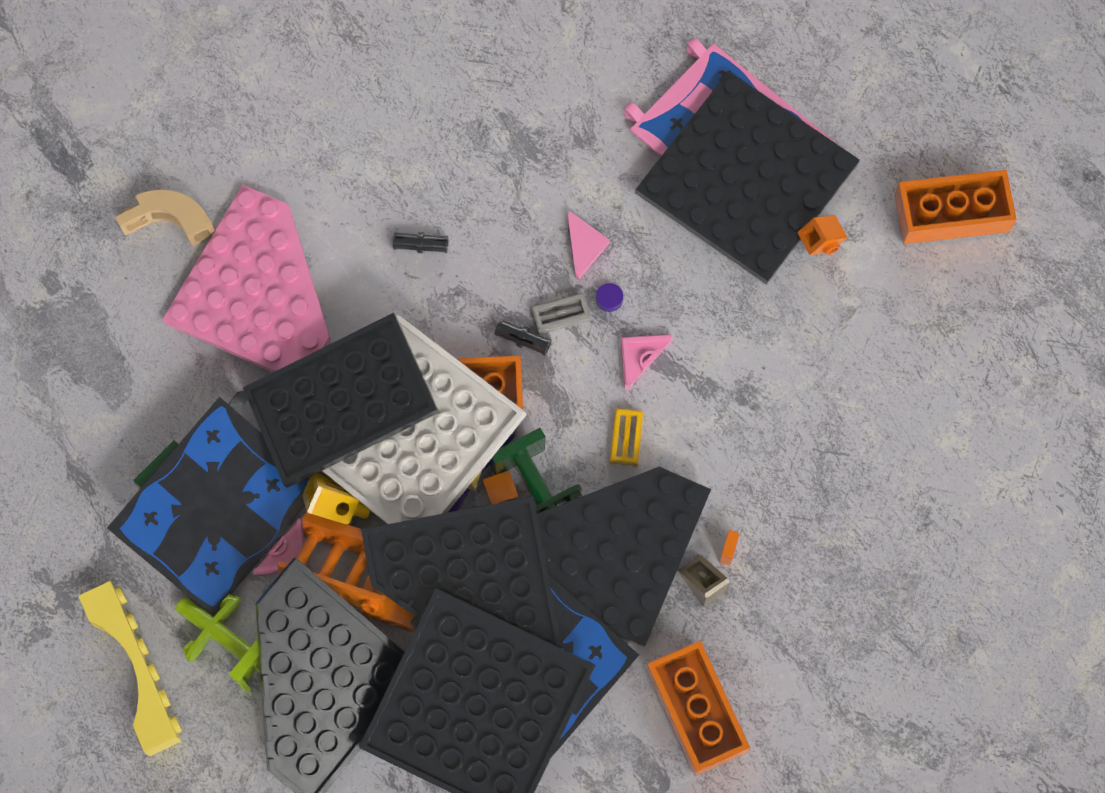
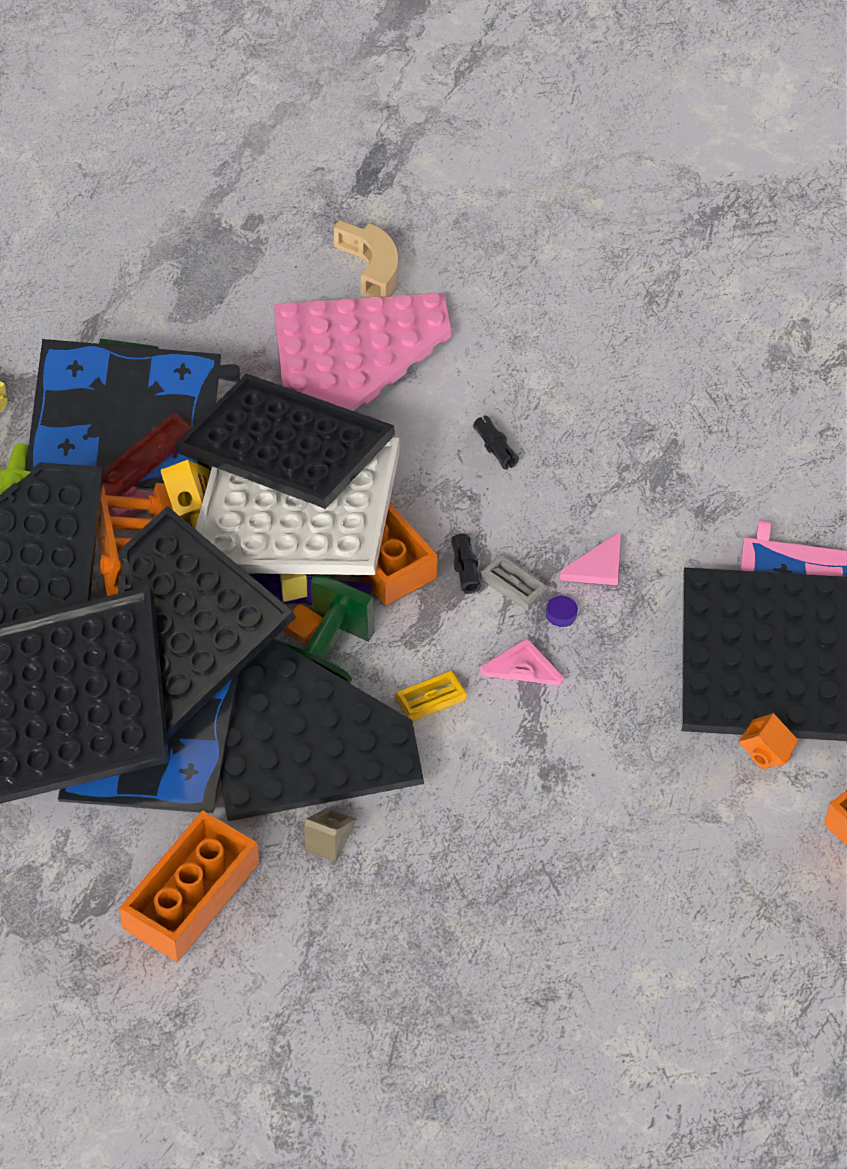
camera: 55 degrees right, 20 degrees down
(267, 518) = (144, 456): none -> clear red tile
(729, 547) = (378, 832): orange tile -> none

